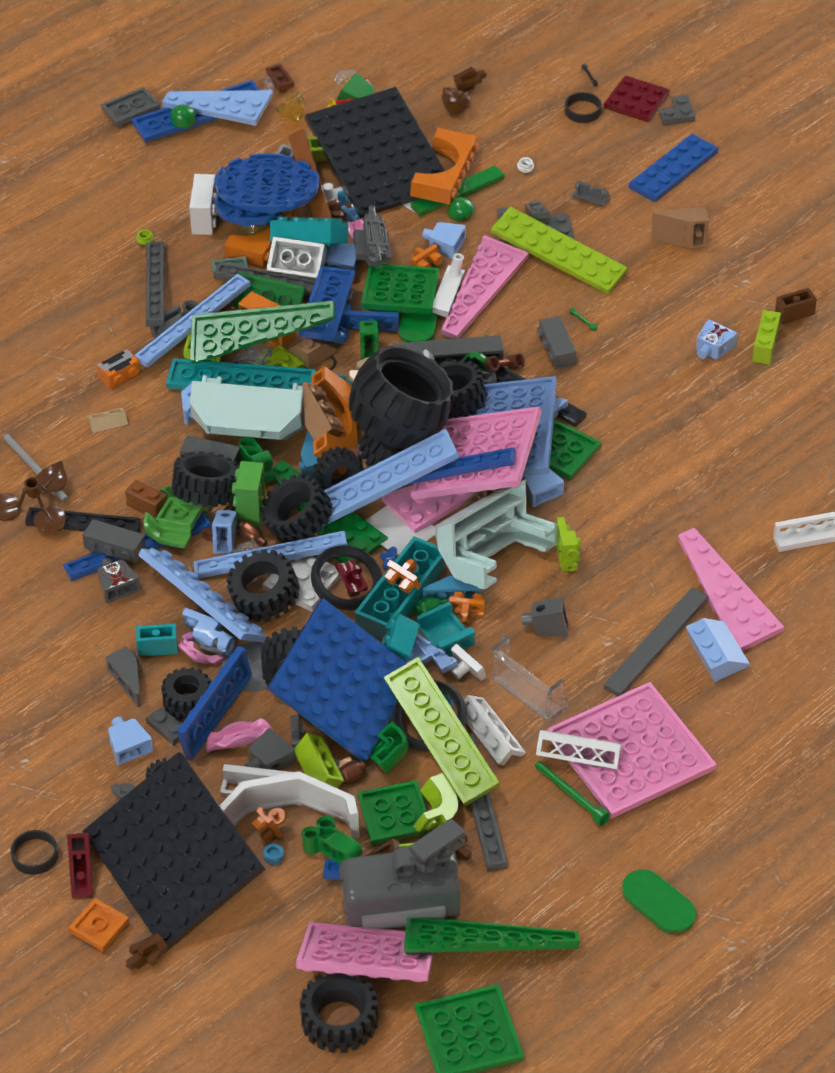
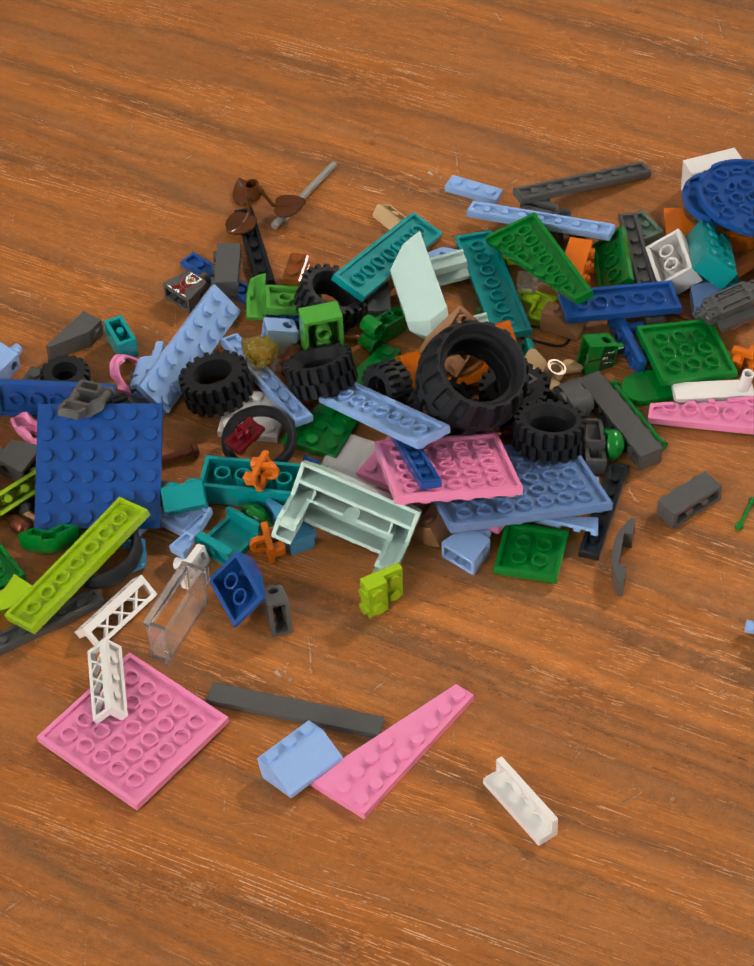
camera: 70 degrees right, 0 degrees up
(90, 364) = (473, 190): none -> light blue plate
(118, 368) = (455, 199): orange brick -> none
(144, 236) = (649, 157): lime plate -> none
(177, 427) = (373, 265): none -> teal plate
(248, 541) = (259, 350): none -> clear yellow hair
(301, 656) = (87, 392): none -> dark grey bar
(341, 336) = (594, 328): blue hat -> none
(512, 361) = (641, 474): copper bar -> none
(526, 630) = (238, 587): none -> blue slope
(599, 815) = (37, 726): green piece -> none
(616, 407) = (623, 539): none -> dark grey slope

